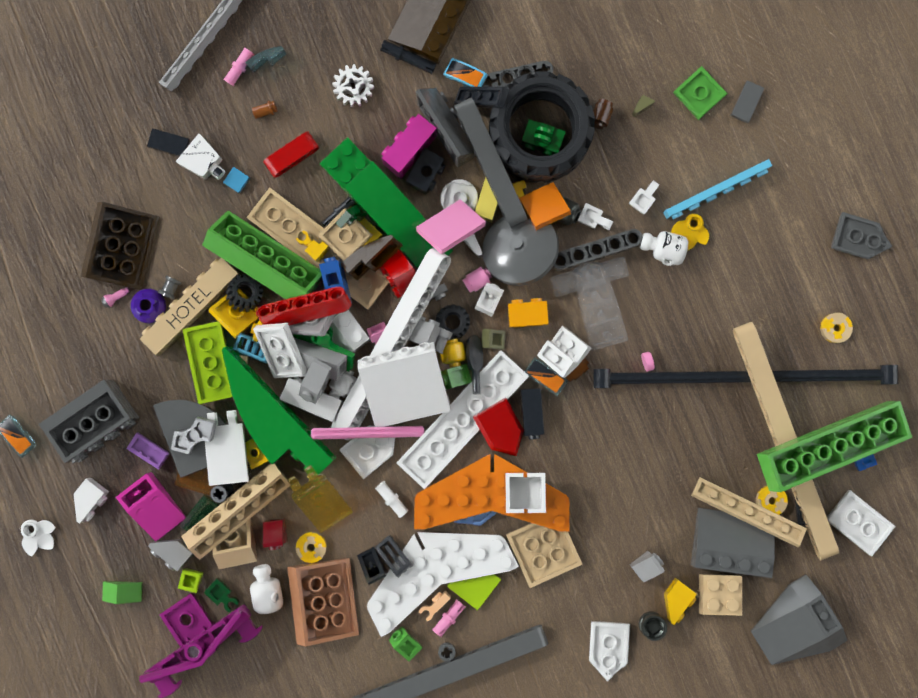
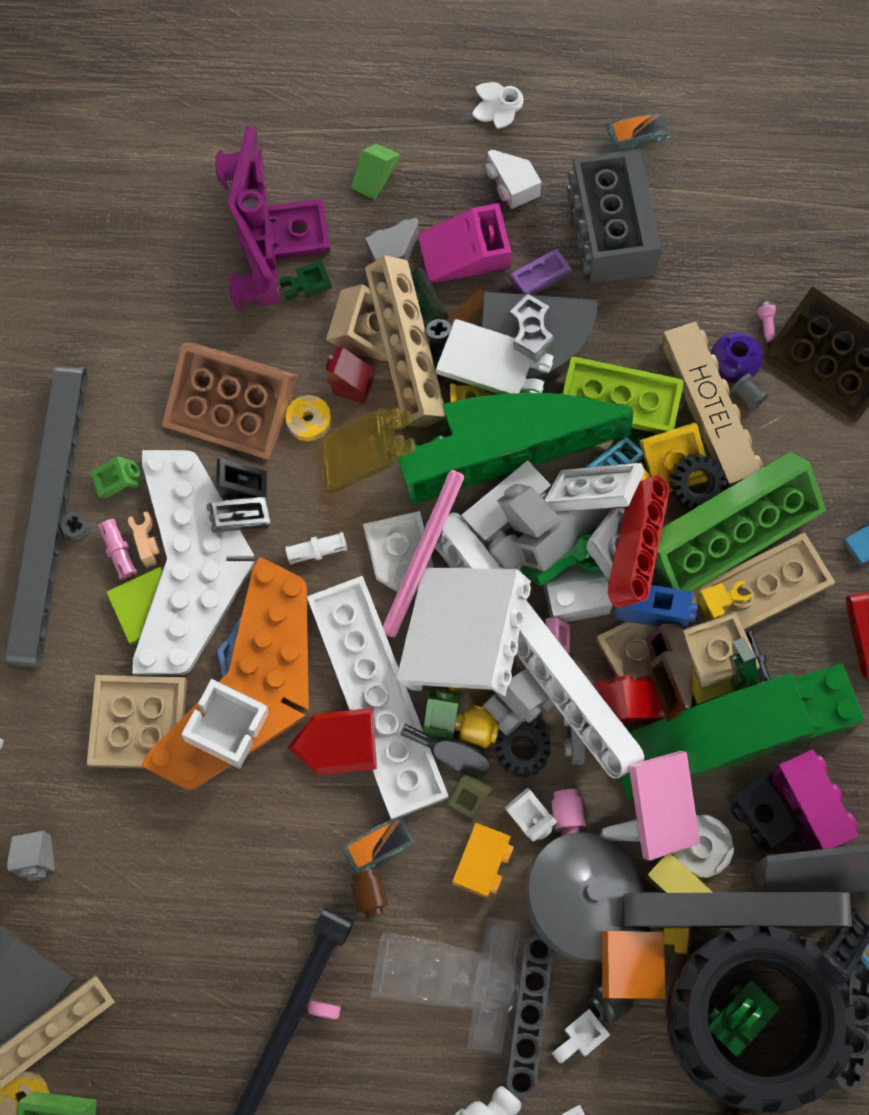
camera: 120 degrees right, 15 degrees down
(190, 580) = (346, 252): lime slope -> none
(266, 591) = (281, 334): white piece -> none
(532, 413) = (335, 798): black brick -> none
(564, 352) = (400, 887): white slope -> none

